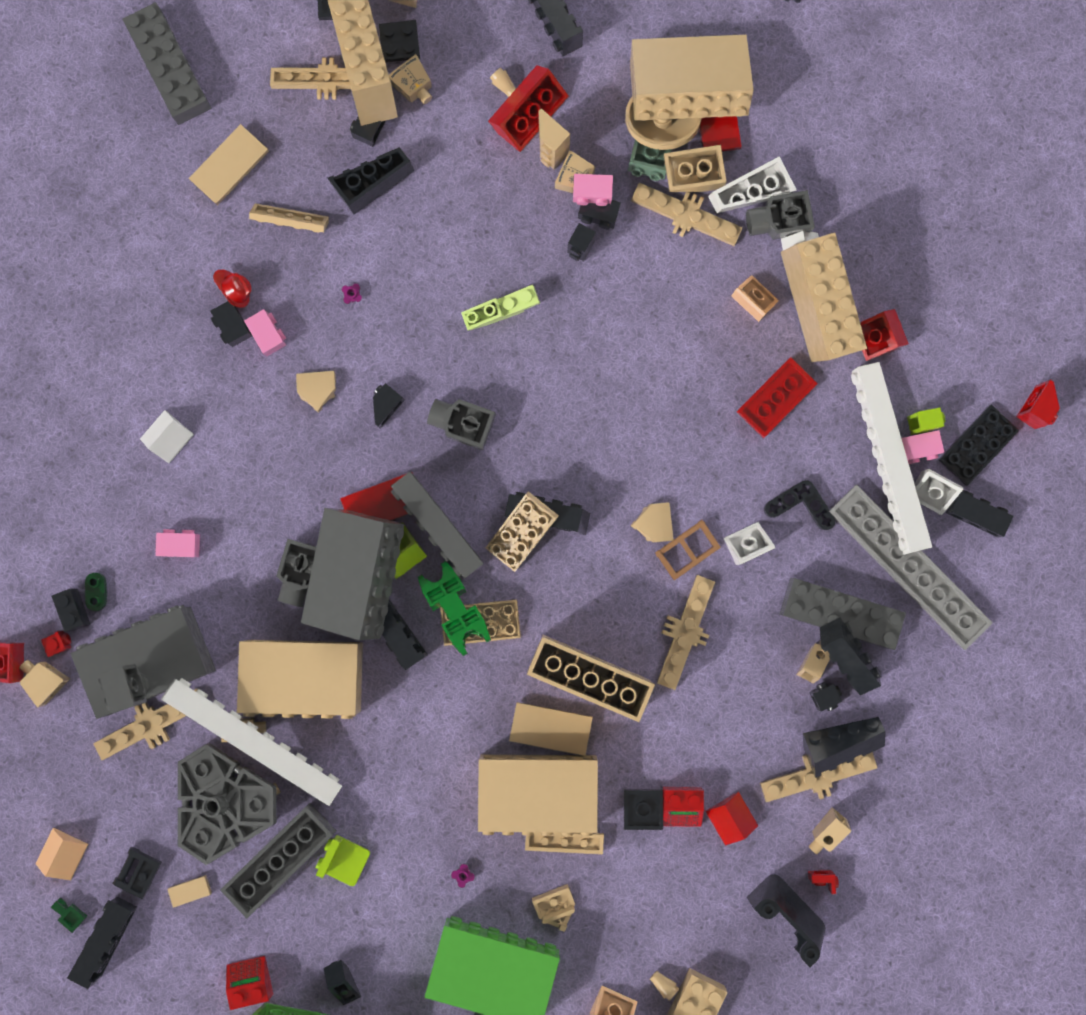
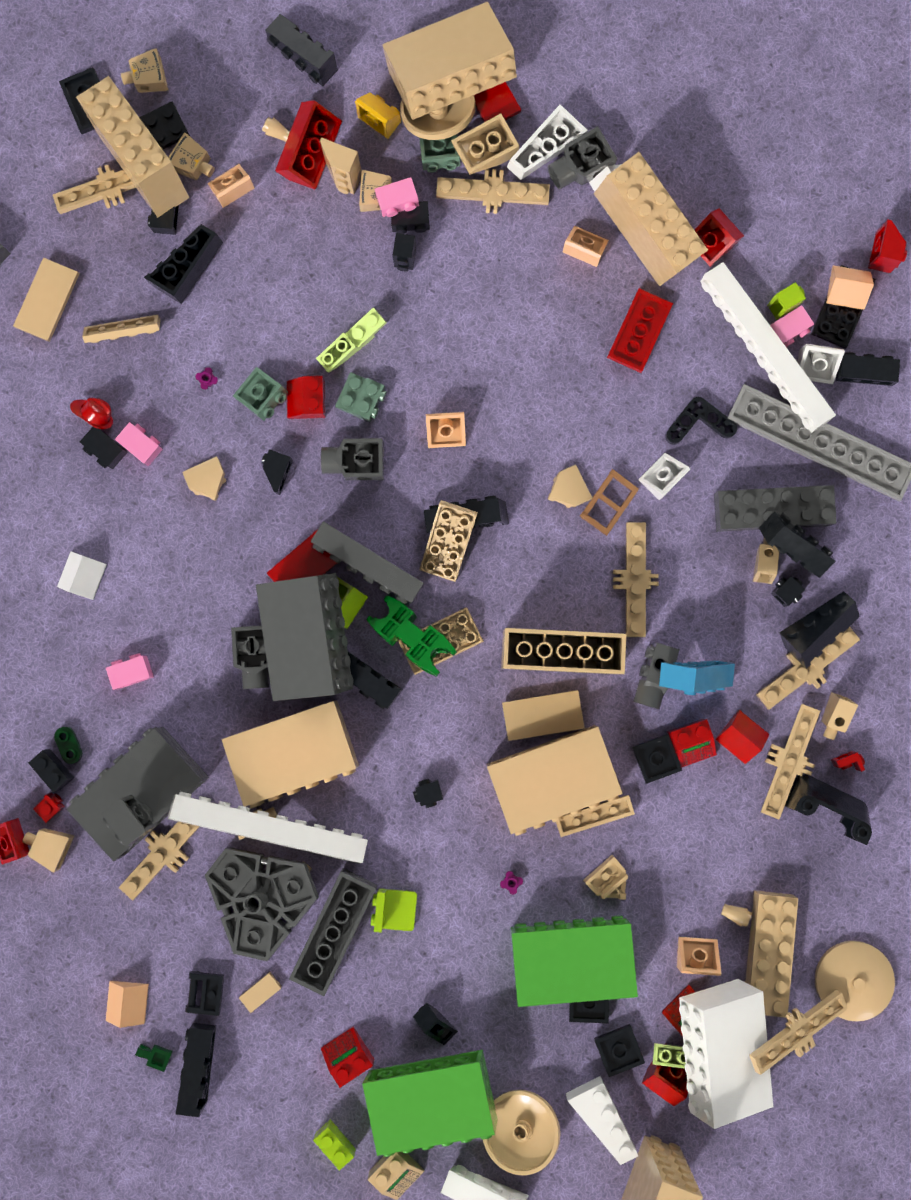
camera: 15 degrees left, 0 degrees up
(397, 327) = (261, 394): none -> sand green plate
(415, 762) = (428, 793): none -> black brick
(438, 346) = (306, 397): none -> red slope
(441, 119) = (231, 185): none -> light nougat slope
(490, 364) = (361, 397): none -> sand green plate
(558, 425) = (445, 429): none -> light nougat slope
(604, 102) = (378, 114): none -> yellow slope
(667, 736) = (648, 688): none -> dark grey brick
(709, 747) = (697, 676): none -> dark azure wedge
(768, 859) = (790, 761): none -> tan hinge
(991, 429) = (849, 287): none -> light nougat slope

